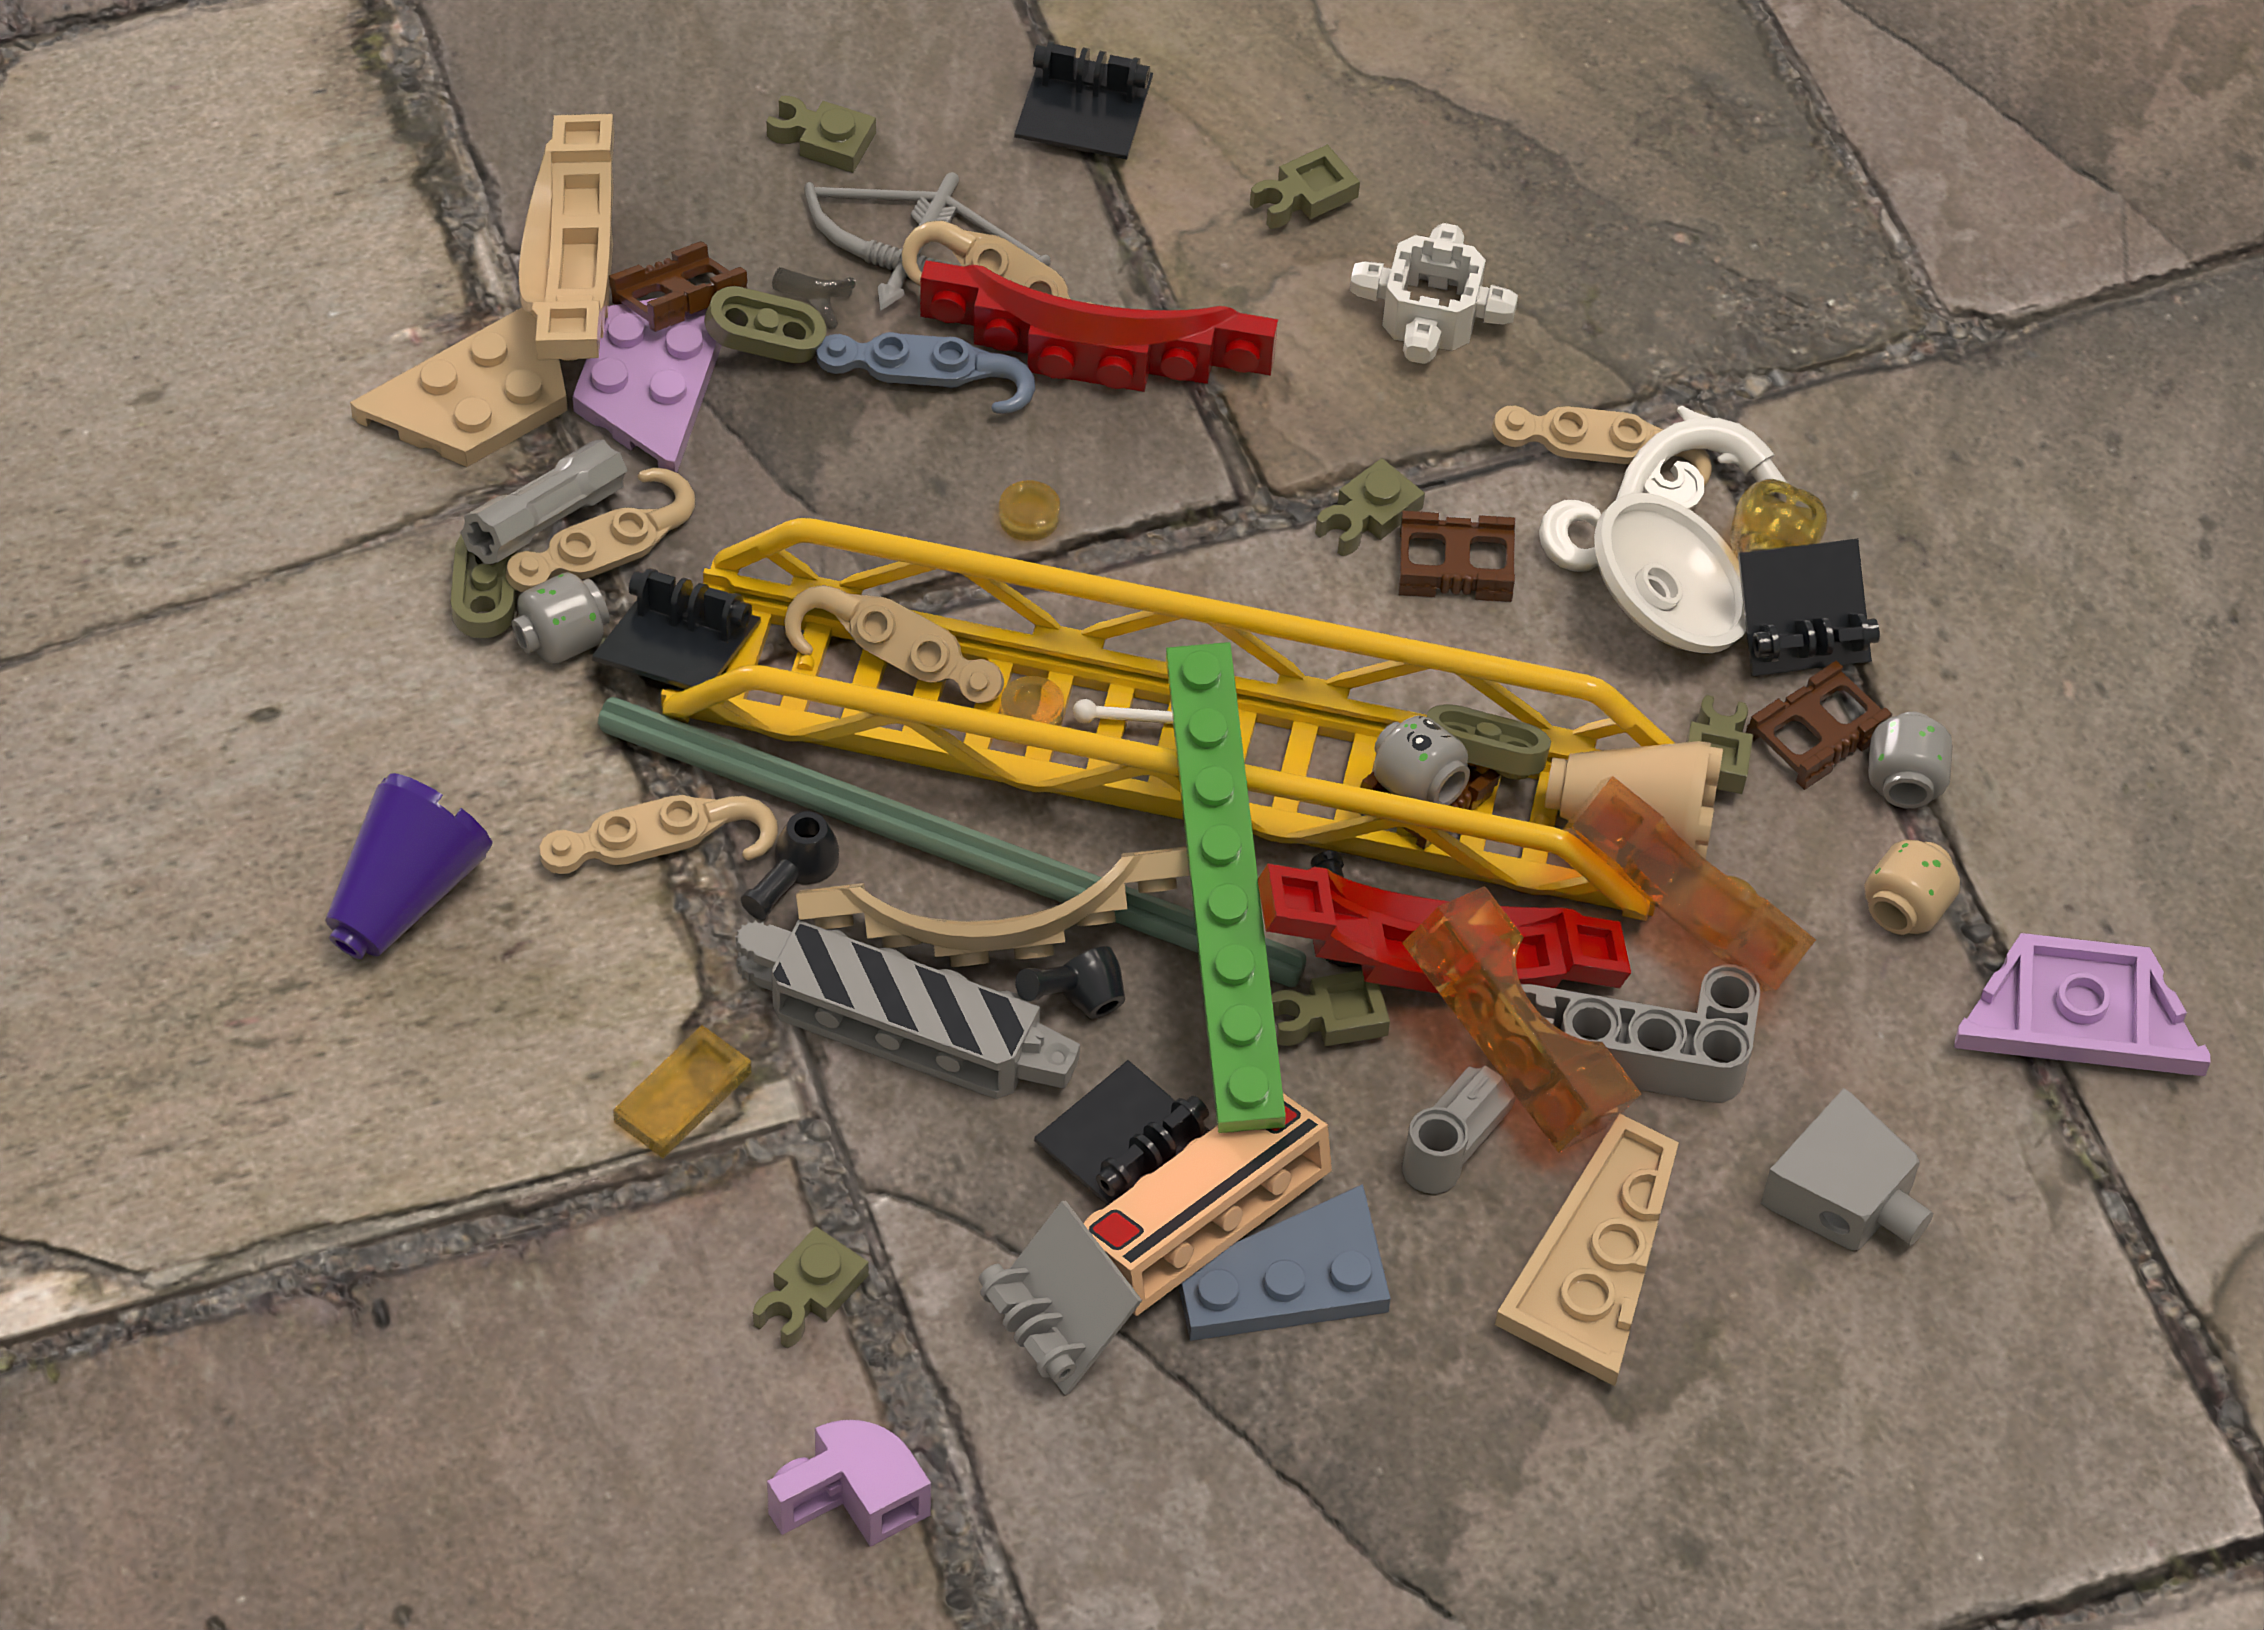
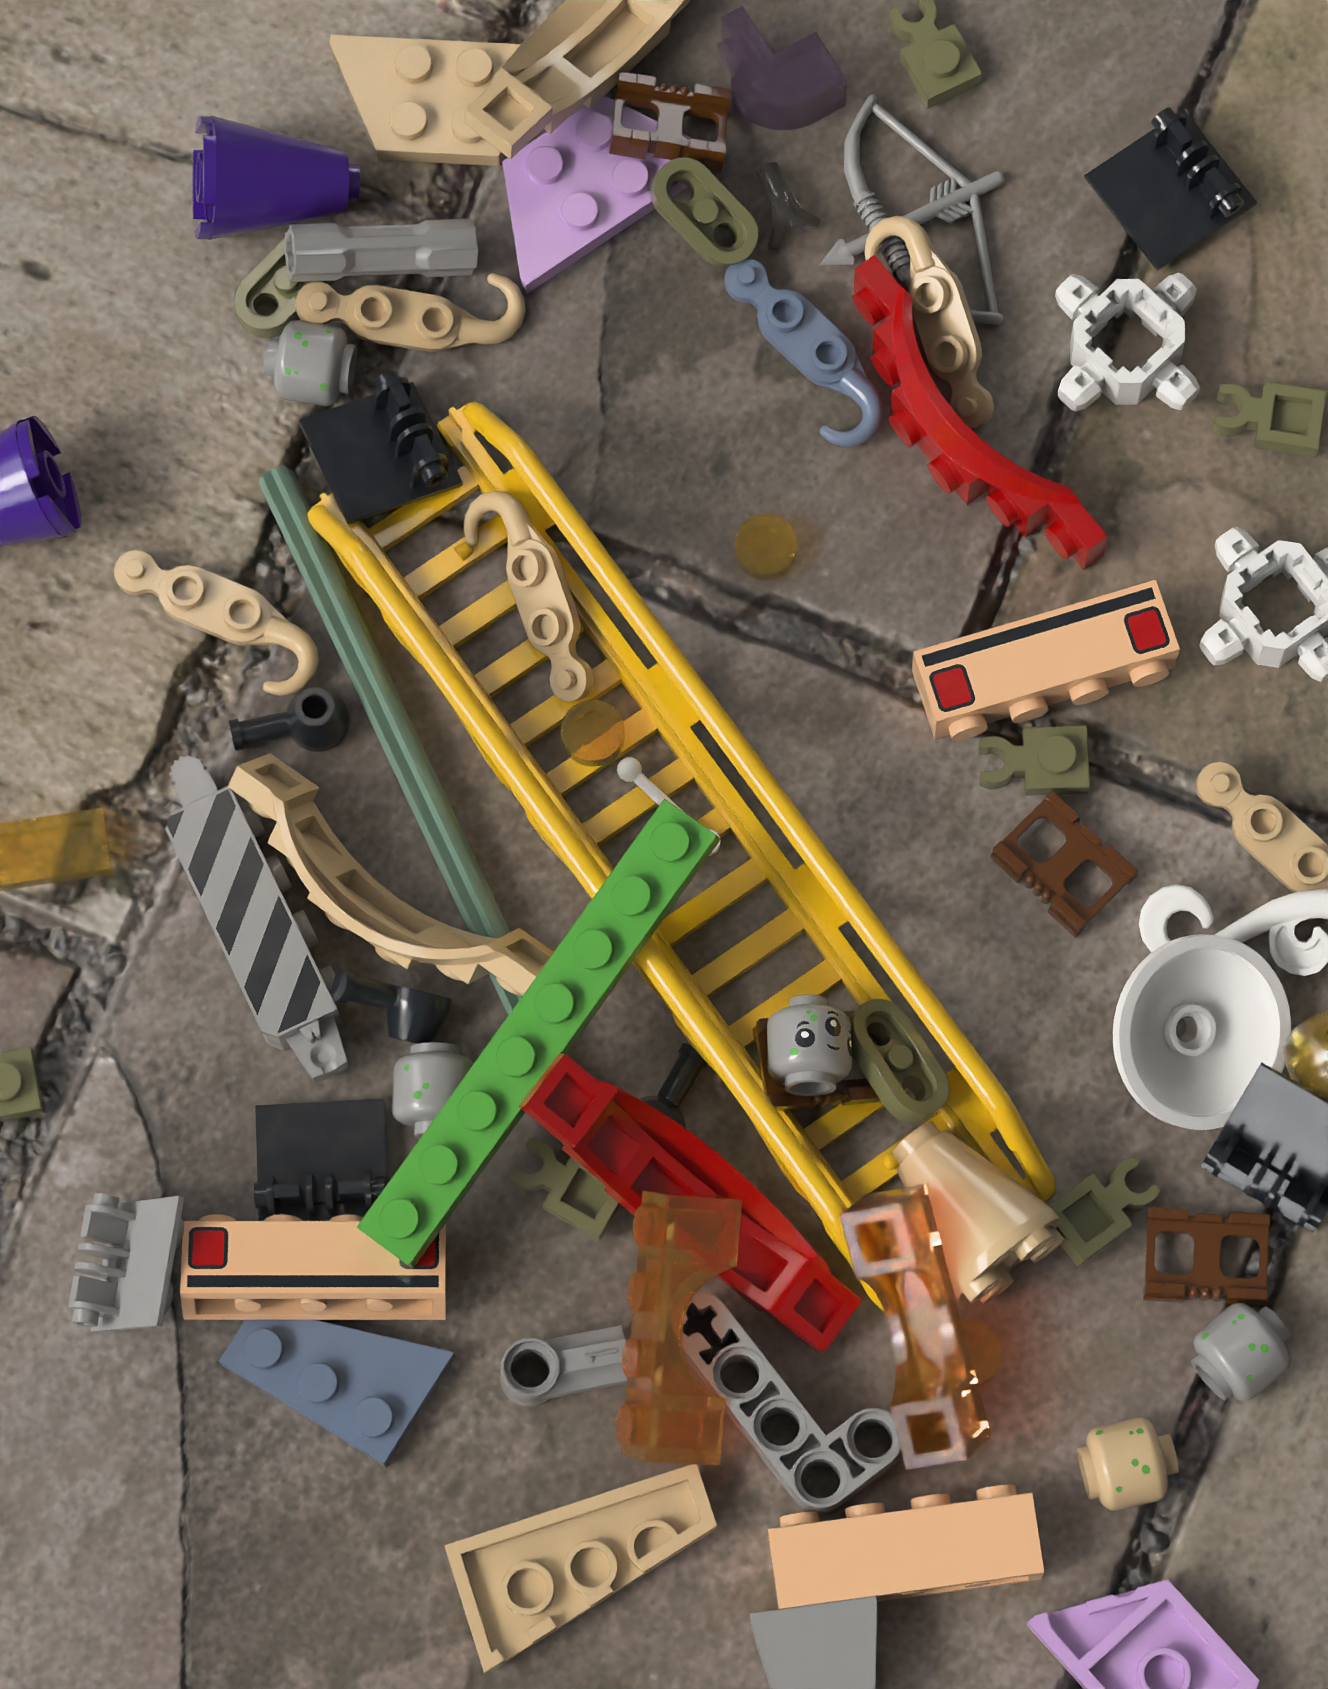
camera: 50 degrees right, 20 degrees up
(393, 521) = (265, 179): none -> dark purple cone
(735, 217) = (783, 87): none -> clear purple brick
(1154, 238) = (1160, 314): none -> white piece
(1161, 1021) = (426, 1082): none -> light grey head
(1310, 437) = (1046, 661): none -> light nougat brick
(1834, 1045) = (907, 1552): none -> light nougat brick

